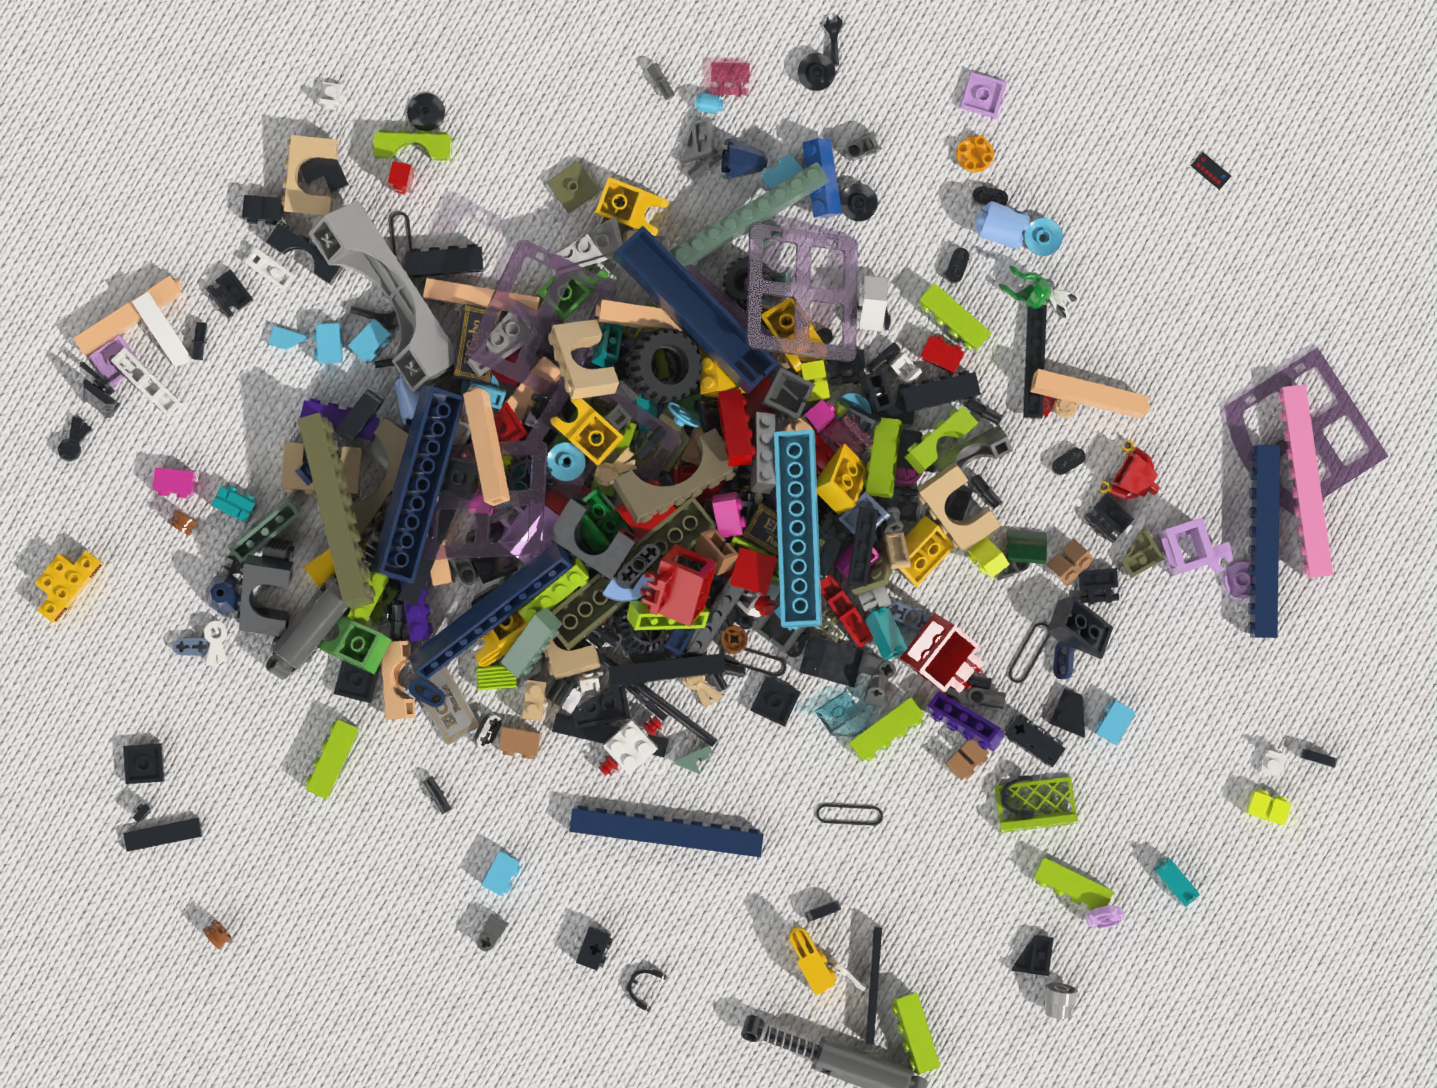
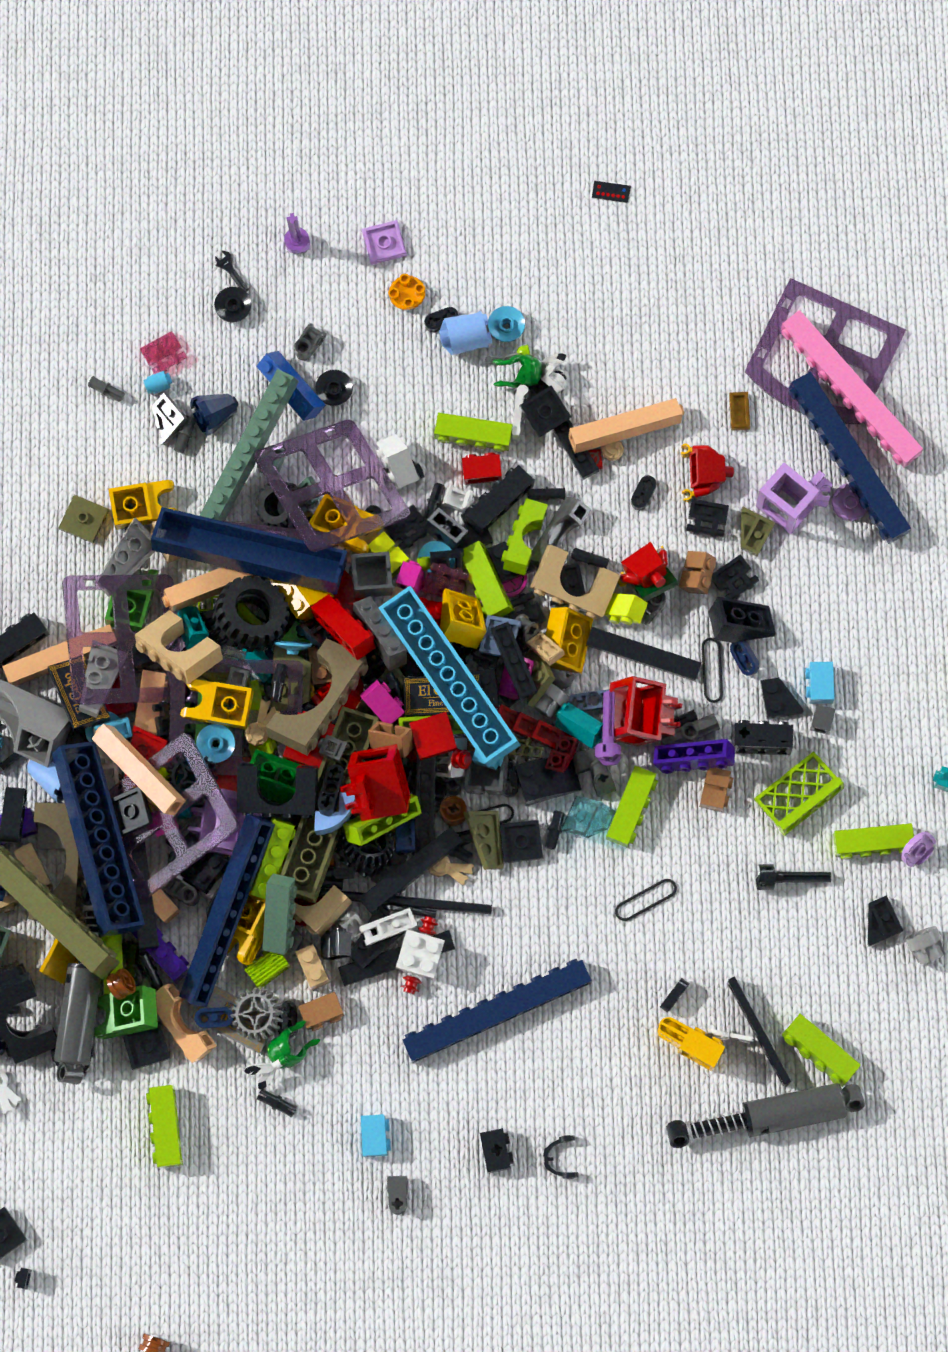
camera: 30 degrees left, 10 degrees down
(163, 834) = (53, 1288): black tile -> none
(364, 621) = (121, 984): none -> dark orange wheel
(462, 759) = (279, 1055): none -> green hair
(467, 706) = (273, 1014): none -> light grey gear
(619, 707) = (388, 926): none -> white plate
(661, 530) = (332, 748): none -> dark grey window
(689, 760) = (478, 938): sand green slope -> none
(748, 679) = (486, 837): none -> olive wing
(786, 168) = (253, 396): medium azure piece -> none
(809, 709) = (554, 830): none -> black axle
(855, 650) = (562, 754): none -> dark red slope
(893, 674) = (608, 748): none -> medium lavender piece
(896, 583) = (562, 679): none -> dark grey hair
(908, 46) = (296, 238): none -> medium lavender piece
(962, 266) = (453, 389): black beam -> none
(965, 862) = (770, 877): none -> black piece
(979, 603) = (643, 654): none -> black tile
(1006, 323) = (518, 427): none -> white plate
(1020, 779) = (791, 805): black piece -> none
(1027, 338) = (545, 411): none -> black plate
(1027, 531) = (645, 567): none -> red torso
(1042, 270) = (524, 349): none -> hinge
(1052, 312) = (554, 379): none -> white bracket
(1095, 755) = (822, 719): none -> dark grey panel
(1197, 439) = (739, 410): none -> pearl gold tile

